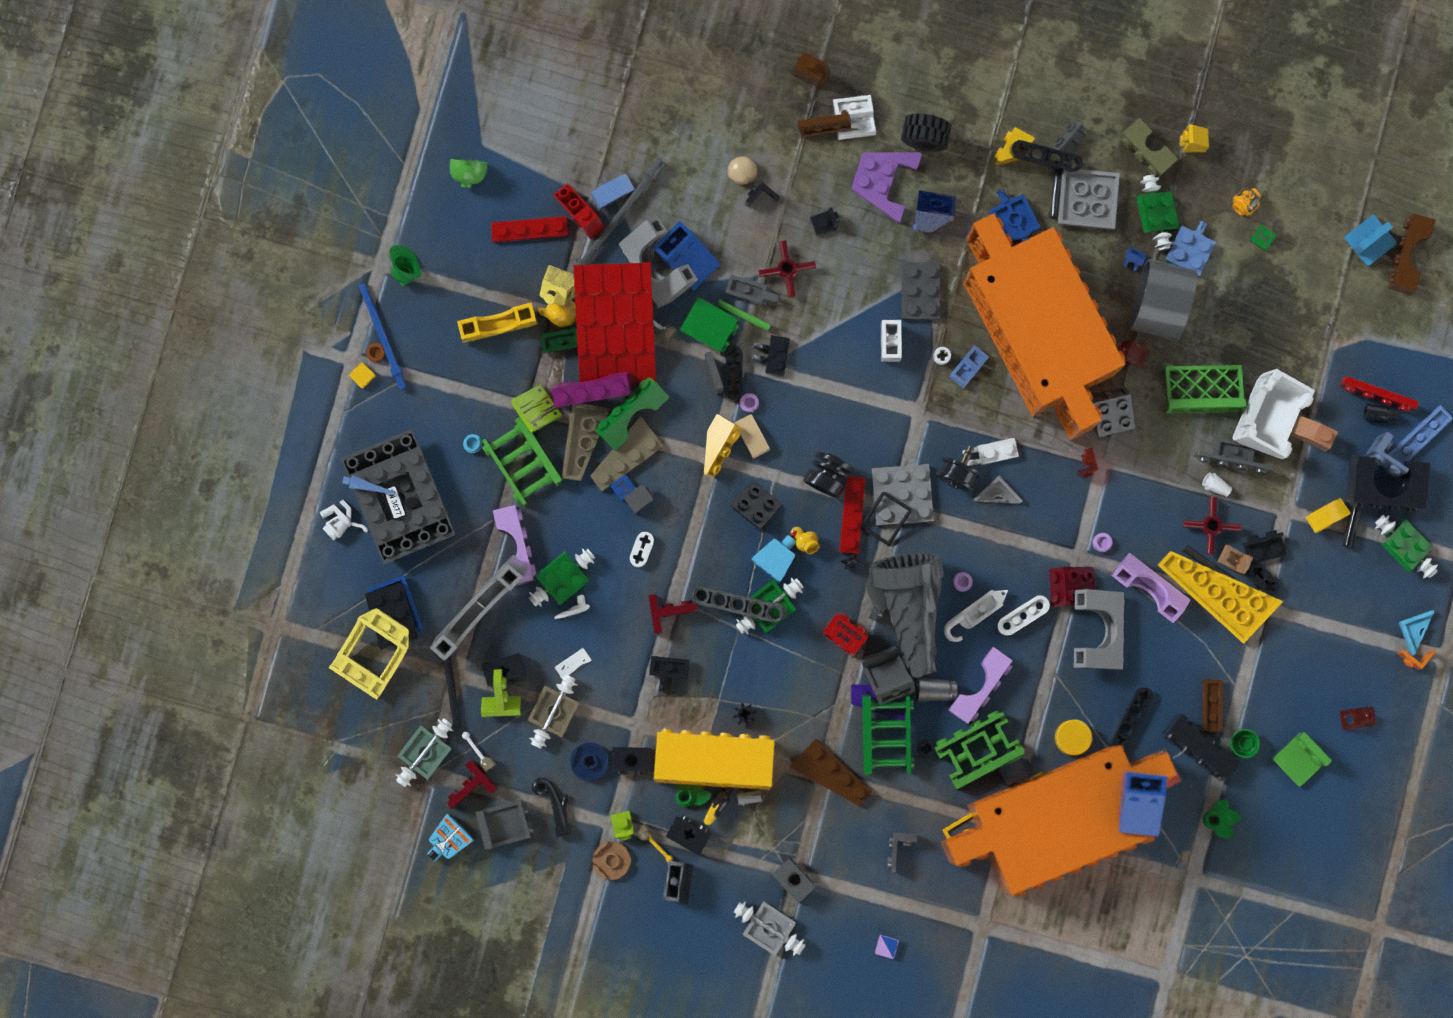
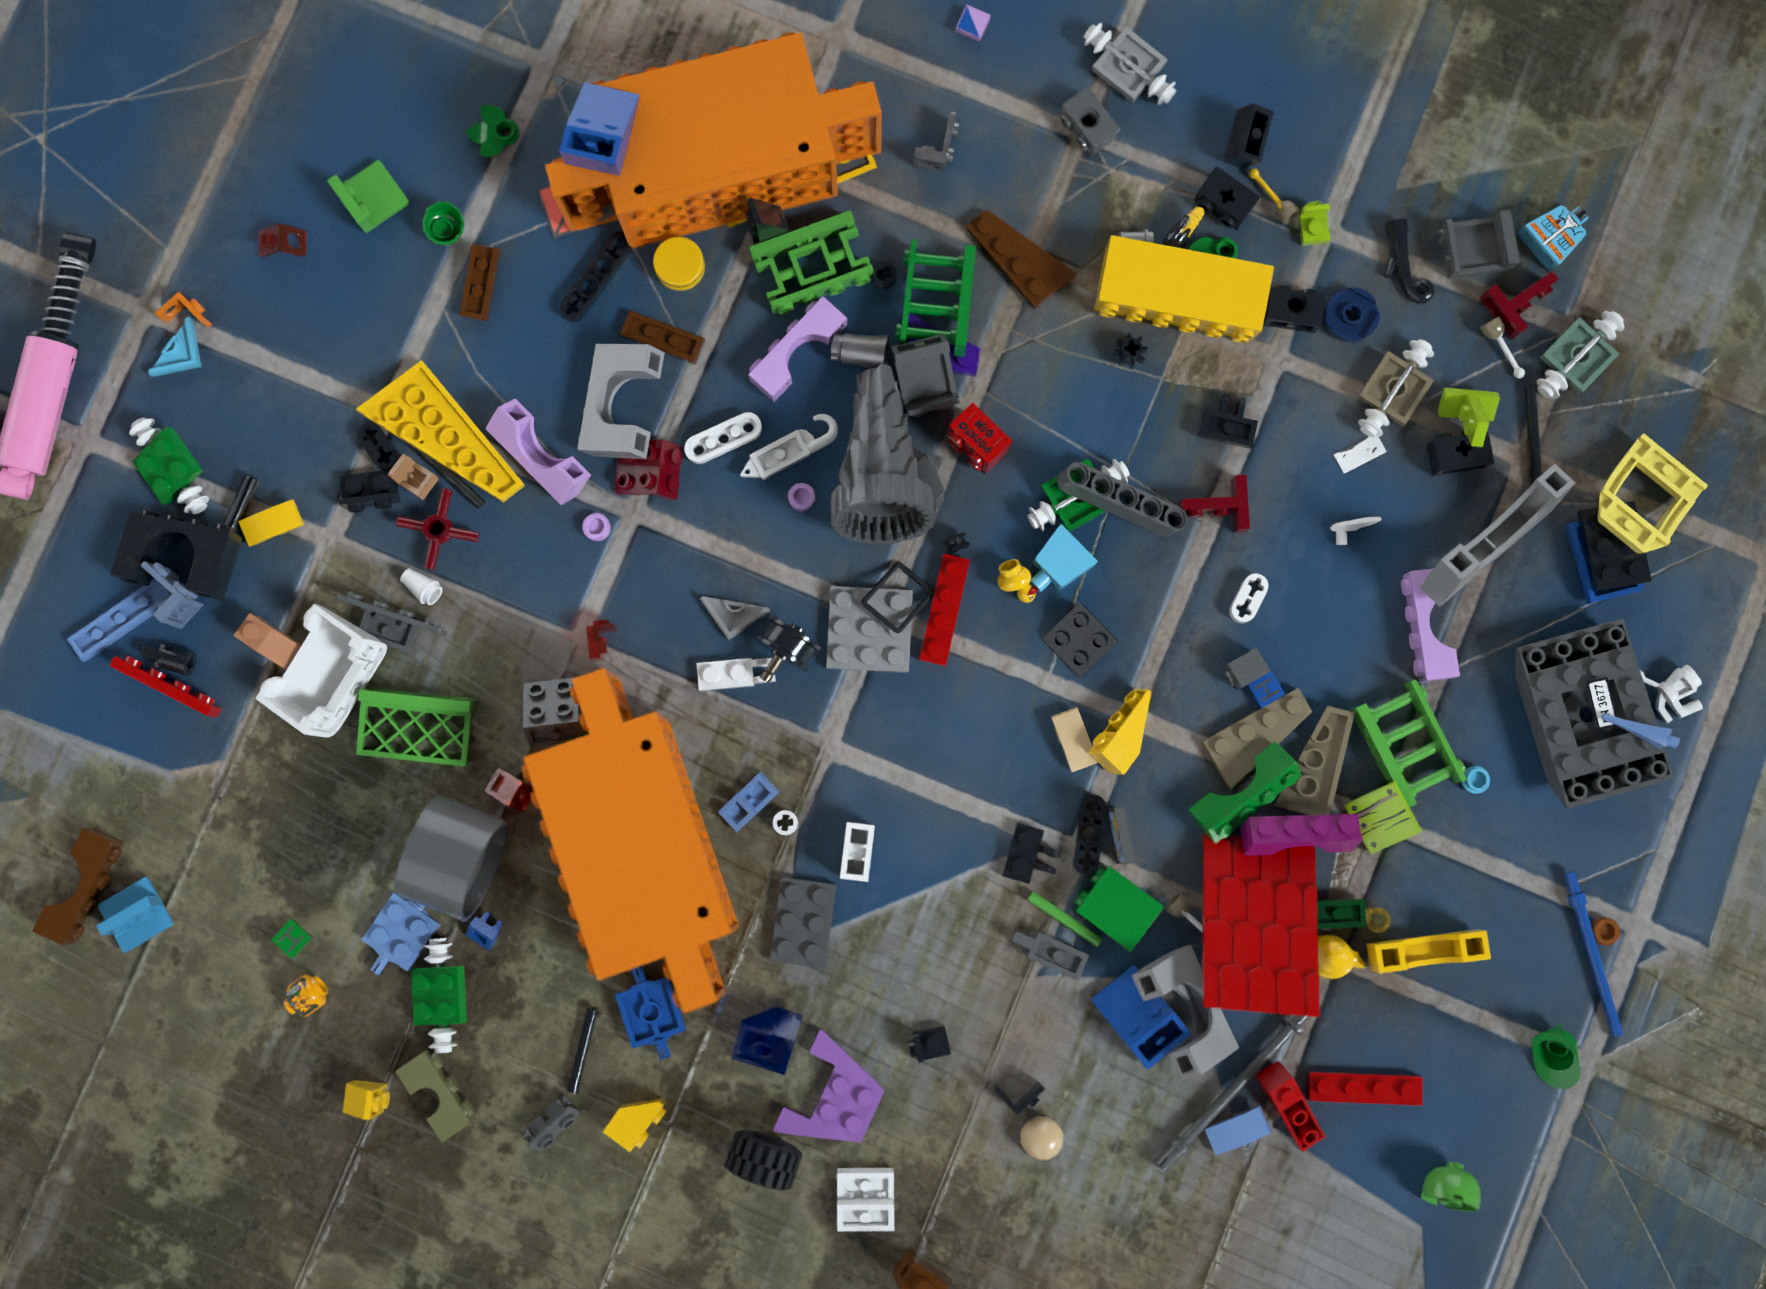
camera: 175 degrees left, 0 degrees up
(362, 375) = (1627, 899): yellow tile -> none
(531, 346) = (1385, 921): none -> clear yellow bush
(557, 286) = (1340, 993): light yellow torso -> none
(562, 578) = (1367, 570): green plate -> none
(611, 860) = (1333, 181): medium nougat tile -> none
(749, 402) = (1072, 789): lavender tile -> none
(787, 276) = (1007, 978): dark red bar -> none
(825, 125) = (911, 1192): reddish brown hinge -> none
(828, 473) = (974, 666): black wheel -> none
(1046, 154) = (590, 1099): black beam -> none
(1077, 683) = (662, 336): none -> reddish brown tile
(1088, 199) = (537, 1029): light grey plate -> none
(1201, 747) = (505, 227): black wedge -> none

